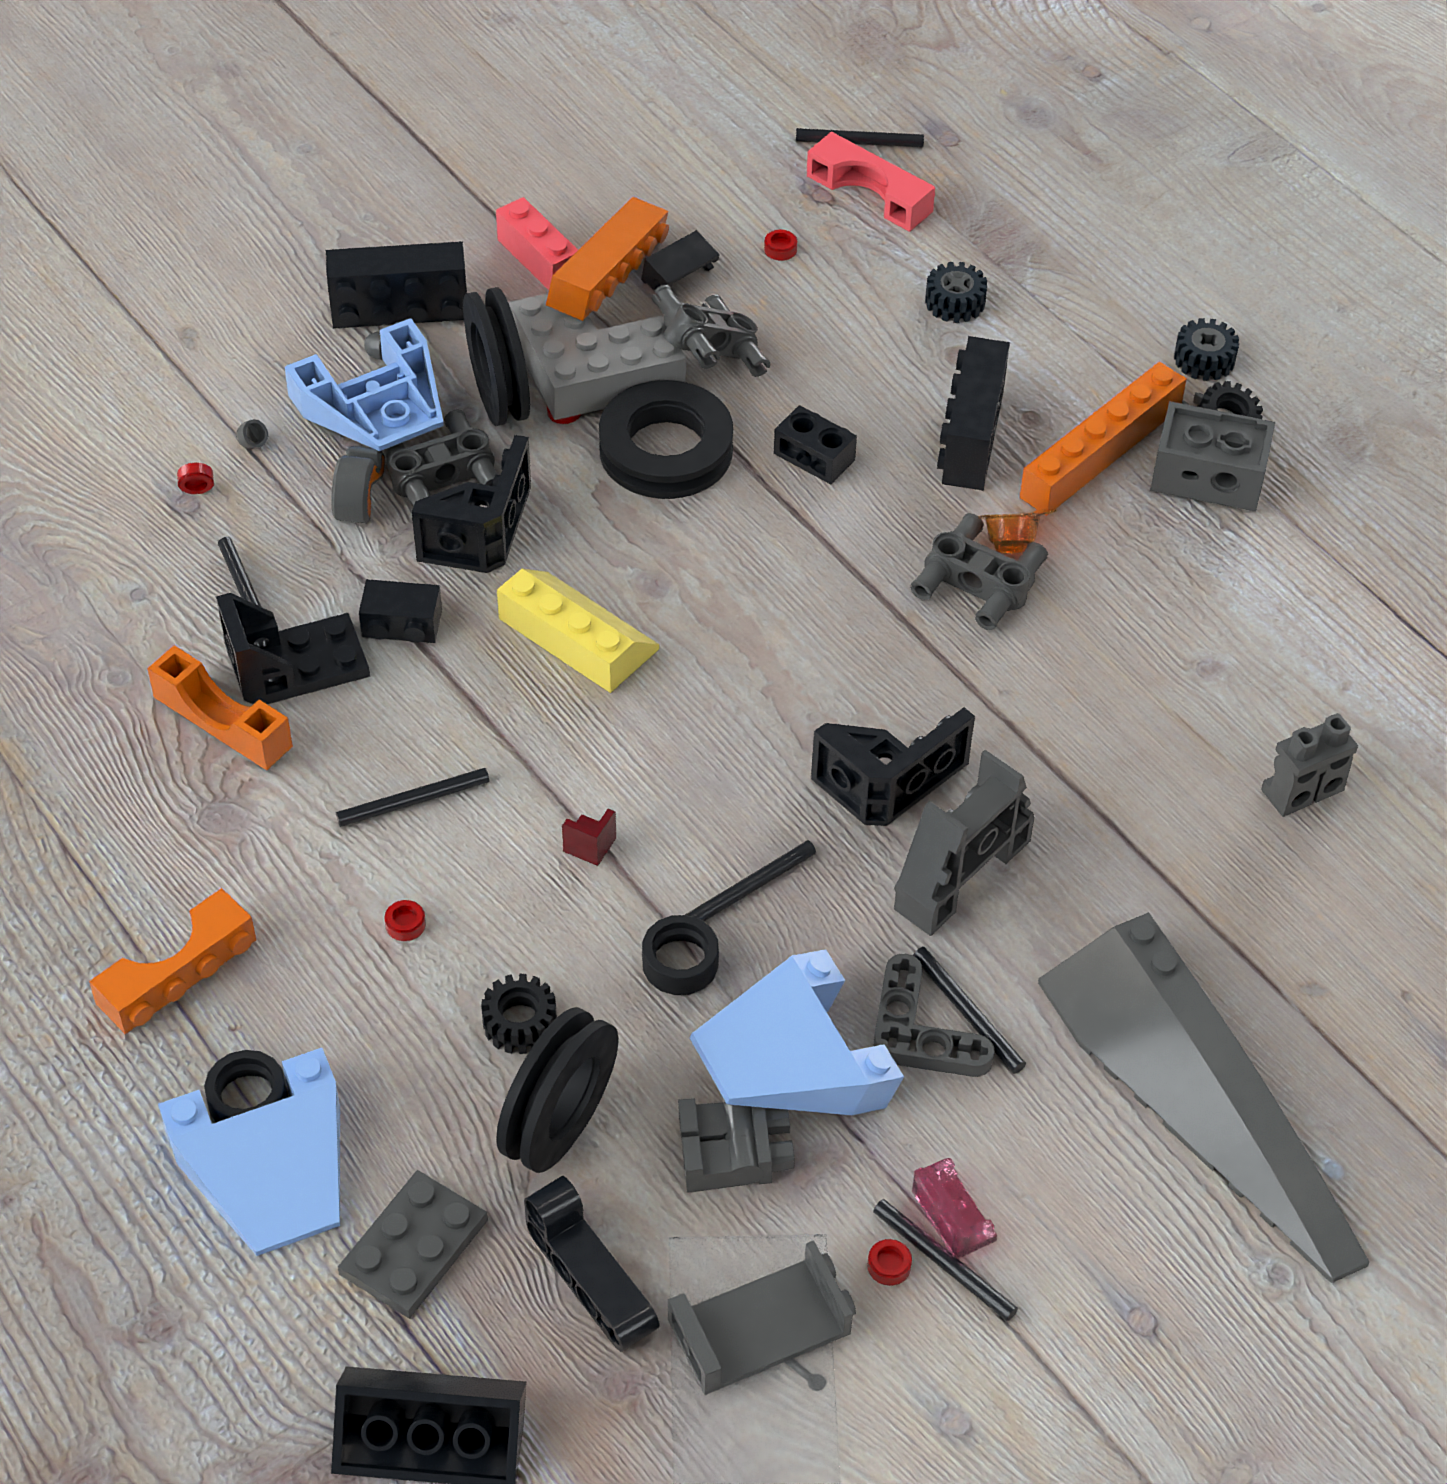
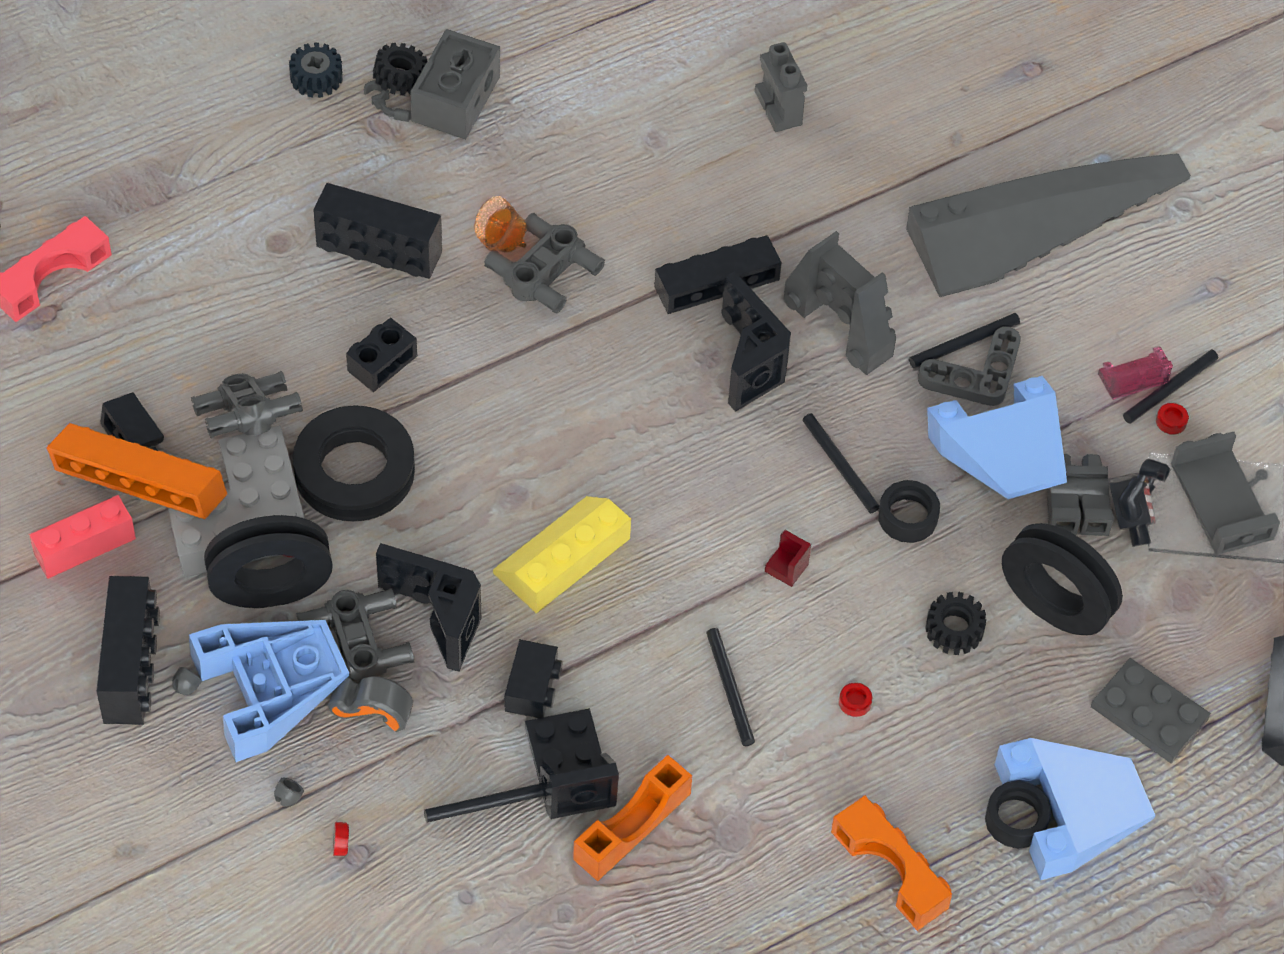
camera: 85 degrees left, 5 degrees up
(586, 1265) = (1158, 605): black beam -> none
(722, 1197) = (1133, 499): none -> black torso
(780, 245) = (112, 351): red tile -> none
(956, 292) = (218, 220): black wheel -> none
(1006, 731) = (703, 276): none -> black brick
(1101, 438) = (412, 155): orange brick -> none

